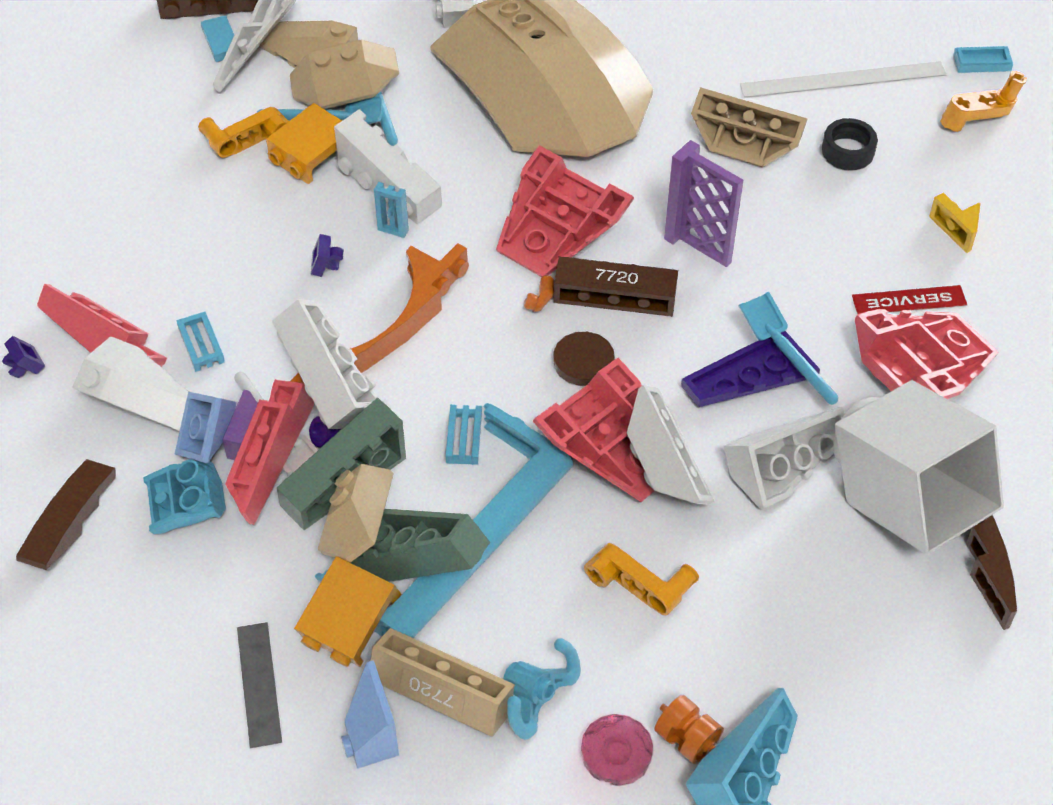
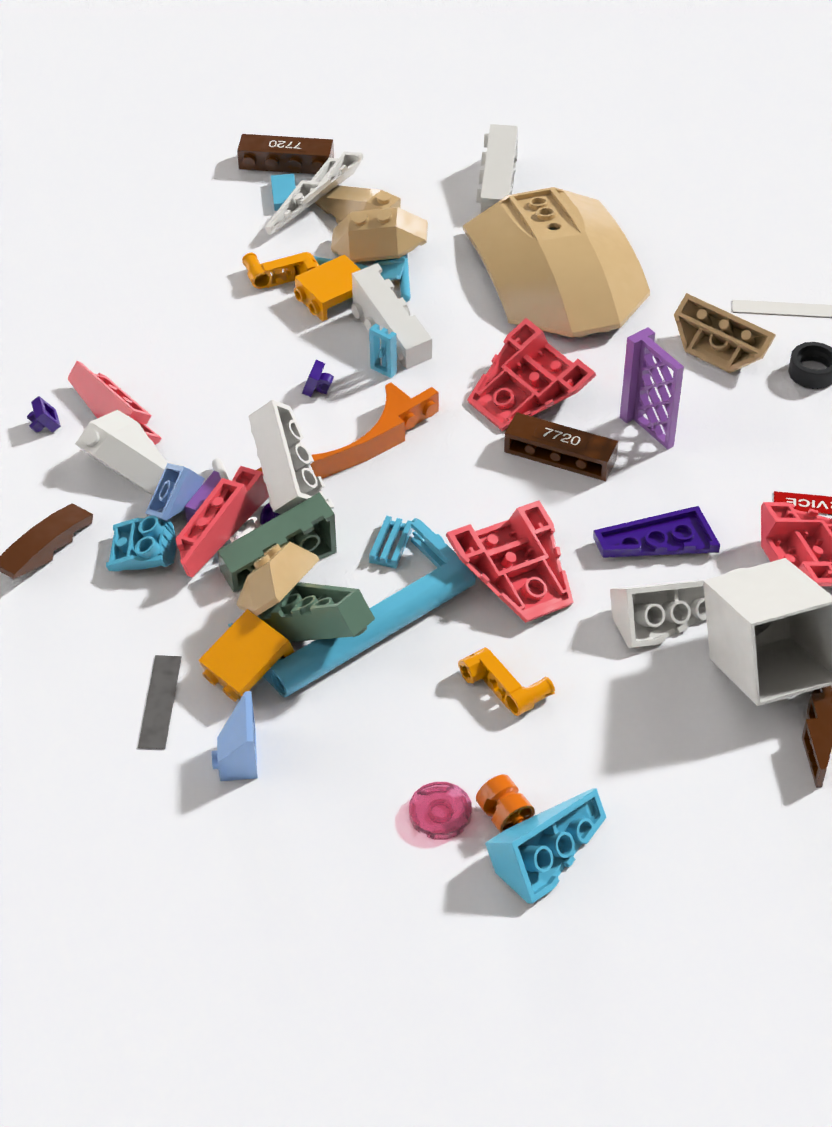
camera: 15 degrees right, 5 degrees down
(206, 358) = (194, 444): medium azure tile -> none
(442, 681) = (307, 725): tan brick -> none
(536, 687) = (385, 746): medium azure piece -> none
(546, 292) = (489, 448): orange arm -> none
(582, 356) = (510, 494): reddish brown tile -> none
(663, 449) = (556, 579): white wedge -> none
(769, 322) = (684, 496): medium azure piece -> none

